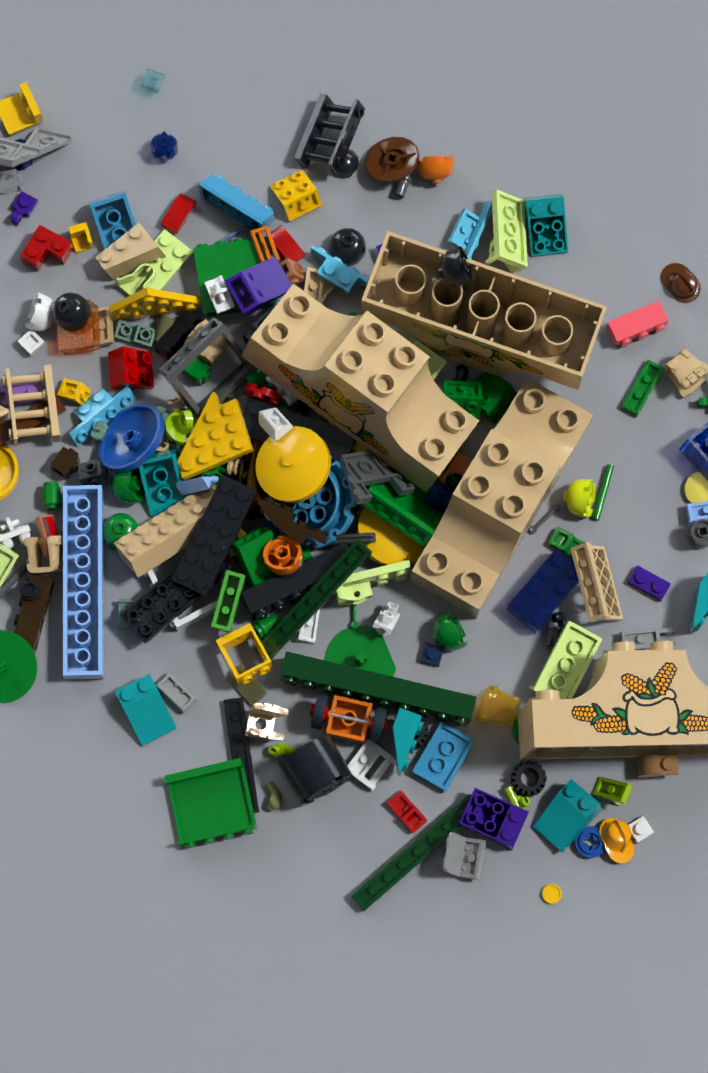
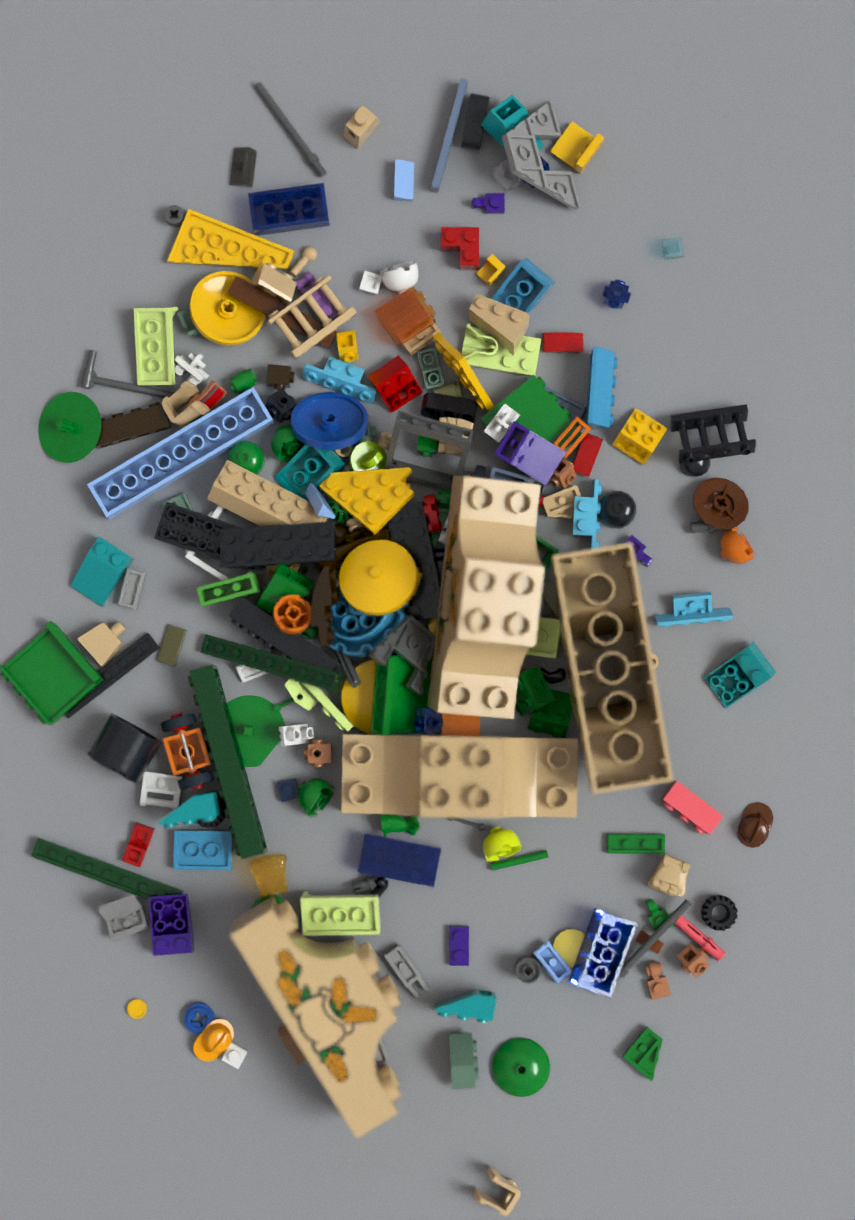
camera: 60 degrees right, 10 degrees up
(29, 590) = (145, 412): black plate -> none
(71, 311) = (413, 302): black cylinder -> none
(99, 431) = (322, 389): sand green piece -> none
(209, 742) = (103, 641): none -> tan torso
(235, 638) = (202, 612): yellow window -> none
(266, 625) = (233, 633): green cone -> none
(267, 713) = (134, 685): tan piece -> none
(274, 423) = (408, 539): white slope -> none
(275, 796) = (88, 725): olive arm -> none
(280, 750) = (132, 707): lime arm -> none
(418, 602) = (326, 753): none -> nougat brick
(453, 479) = (450, 726): dark green plate -> none
(455, 267) = (628, 624): black cylinder -> none
(509, 232) = (711, 646): yellowish green plate -> none
(511, 578) = (397, 824): none -> green animal
(515, 799) = (201, 934): lime arm -> none
(534, 768) = (213, 938): black tyre -> none
(564, 541) = (454, 857): green slope -> none
(567, 815) = (209, 986): teal slope -> none
(589, 579) = (420, 900): tan fence -> none
(612, 790) = (253, 1014): lime slope -> none

